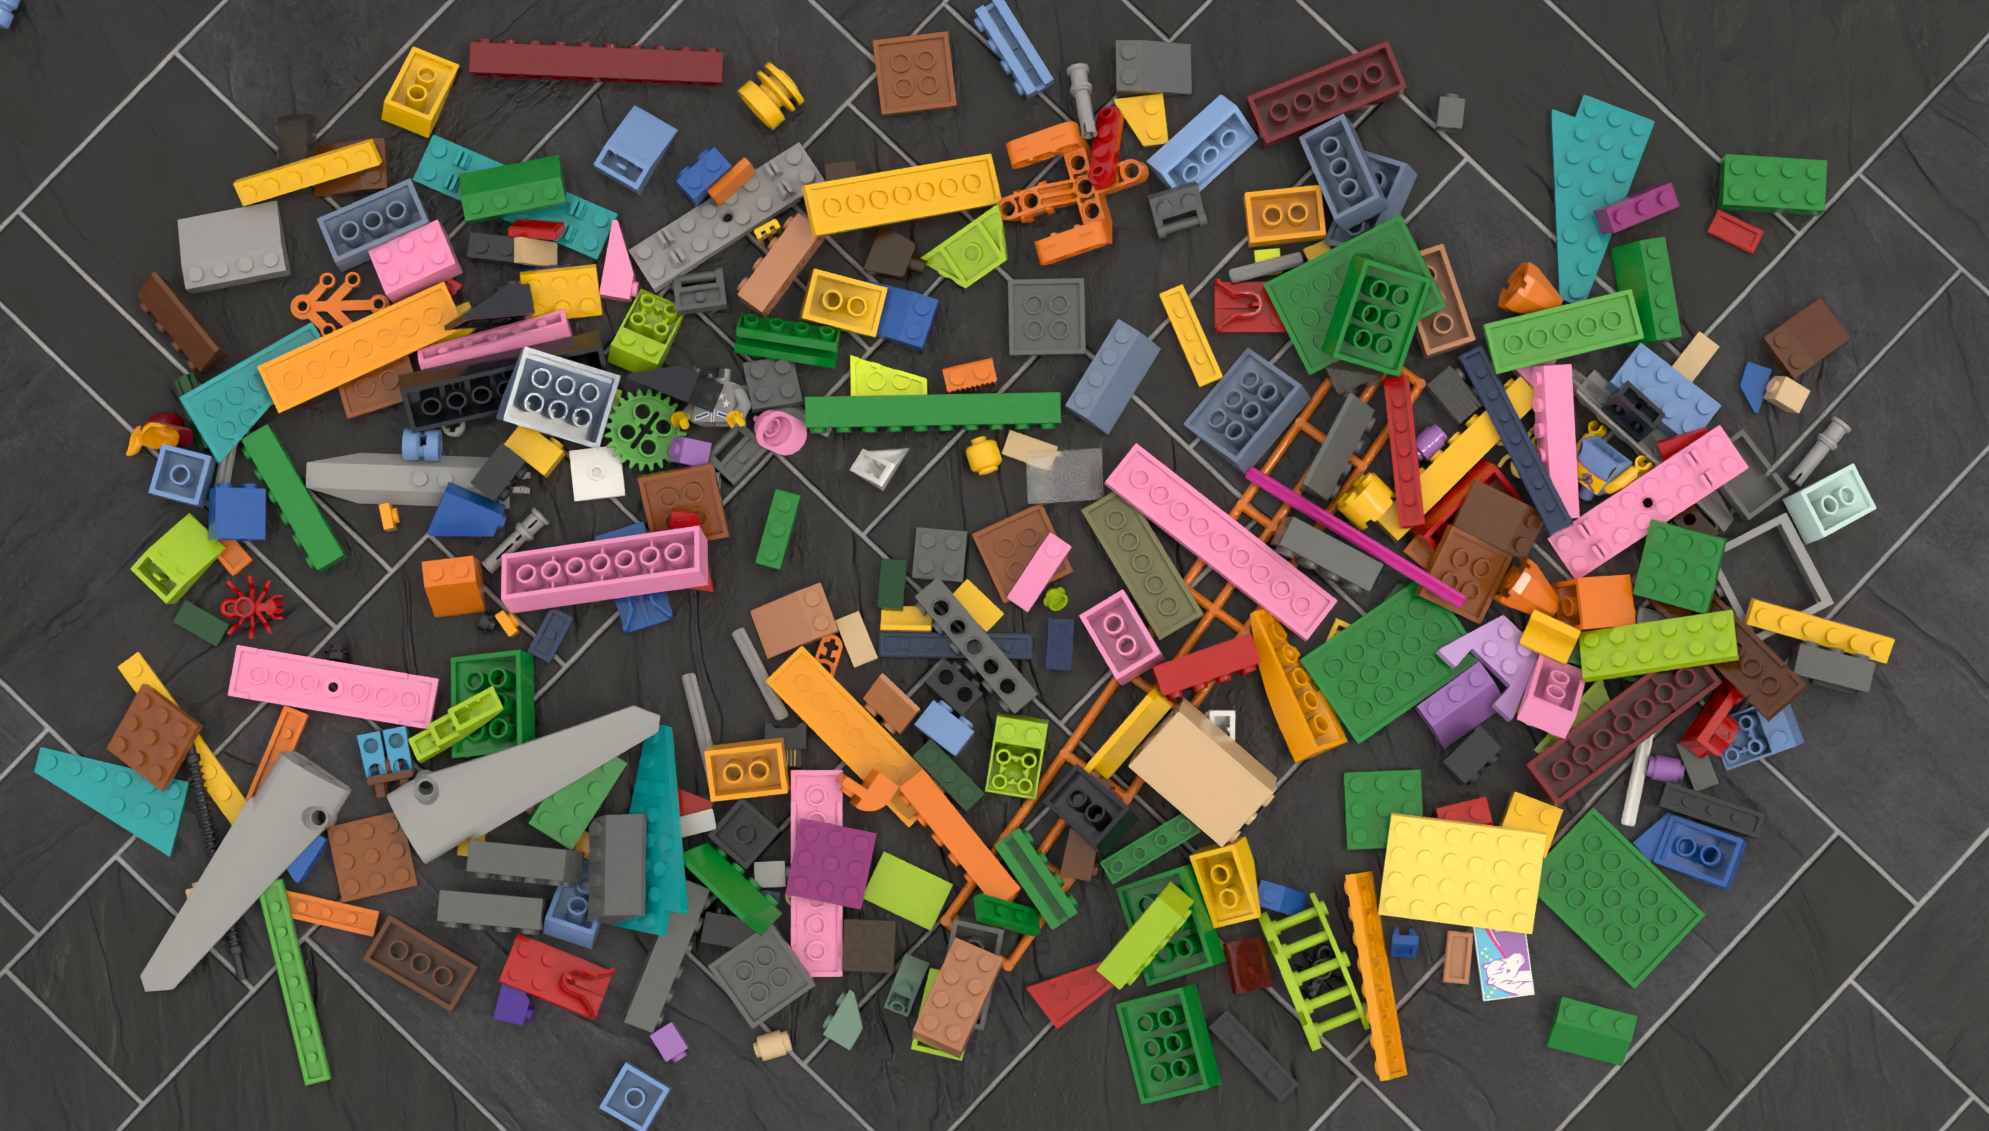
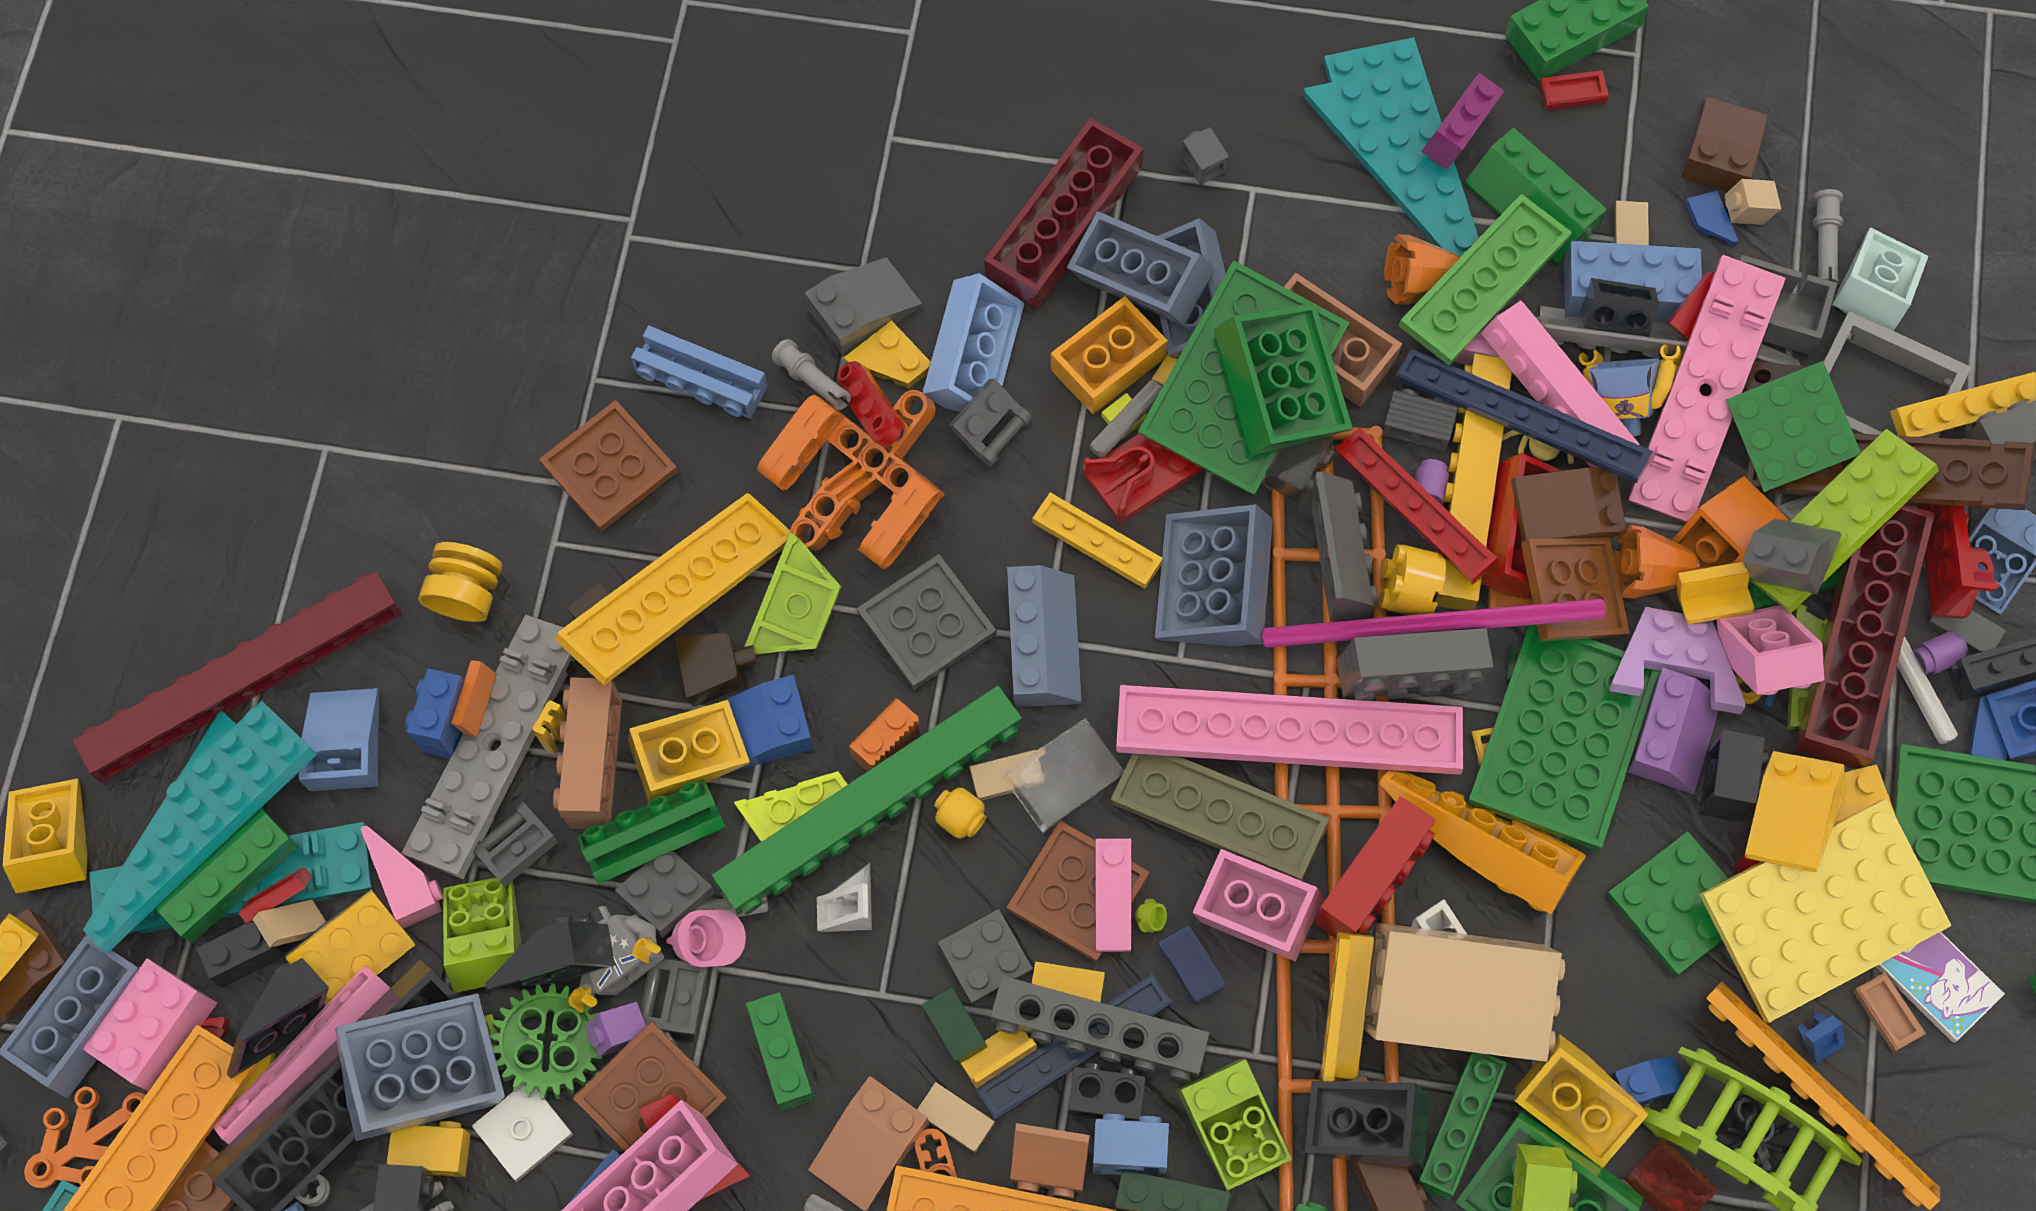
camera: 35 degrees left, 15 degrees down
(536, 140) = (215, 794): none -> teal wing
(1484, 804) = (1796, 811): none -> yellow slope
(1609, 646) = (1791, 555): none -> dark grey slope

